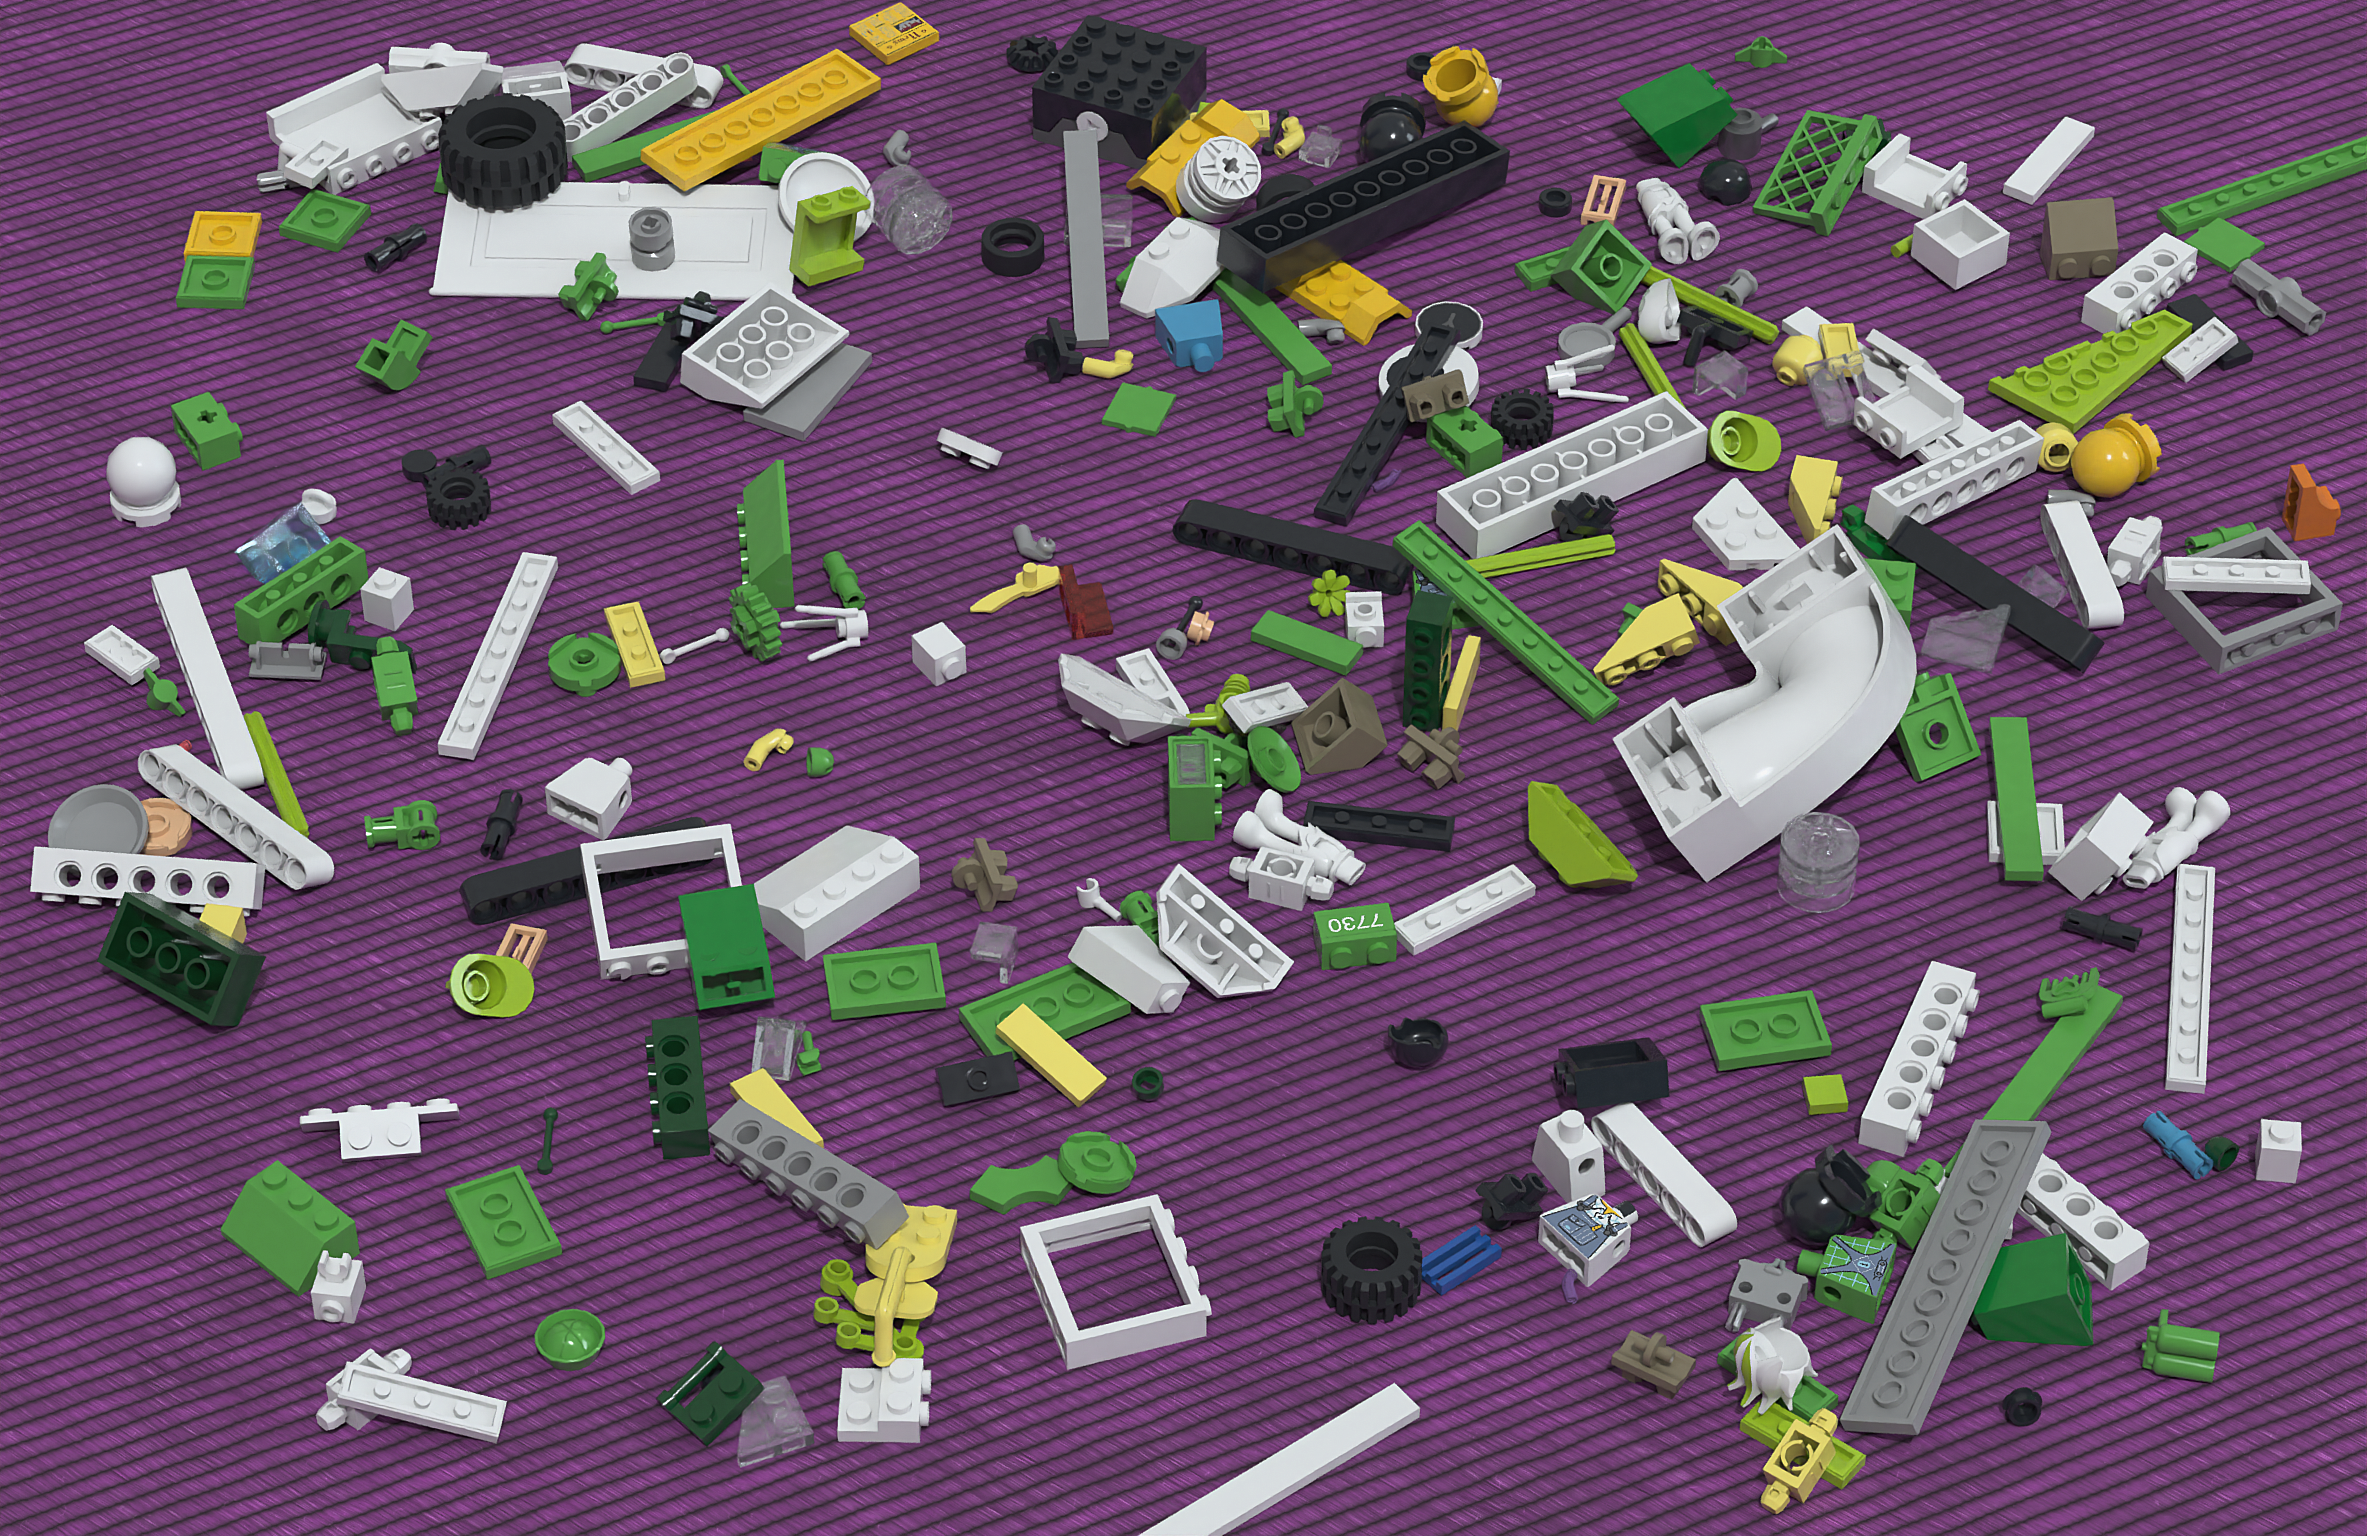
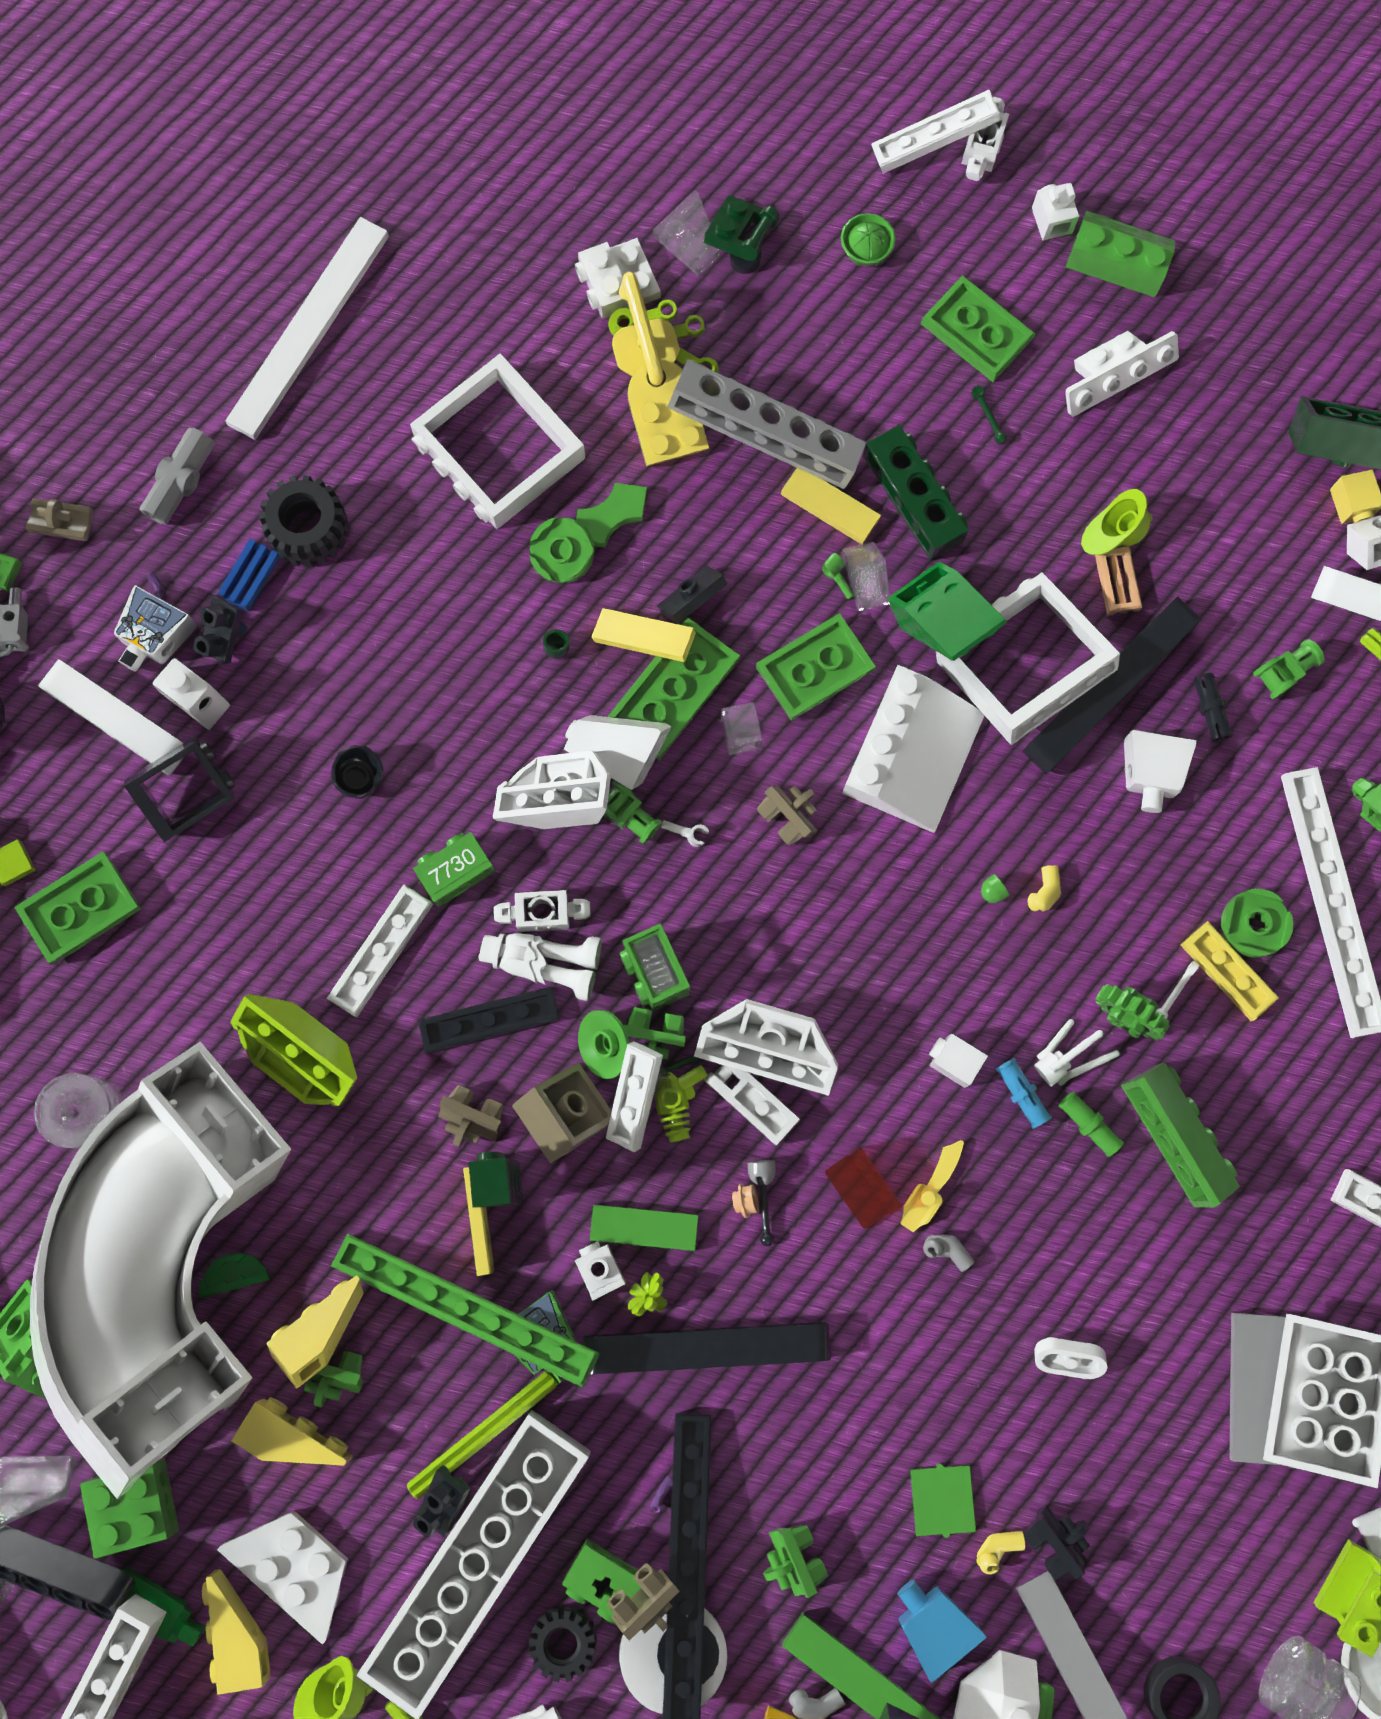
camera: 155 degrees right, 35 degrees up
(893, 630) = (1023, 1093): none -> dark azure pin
(1499, 1370) = (177, 476): none -> light grey piece

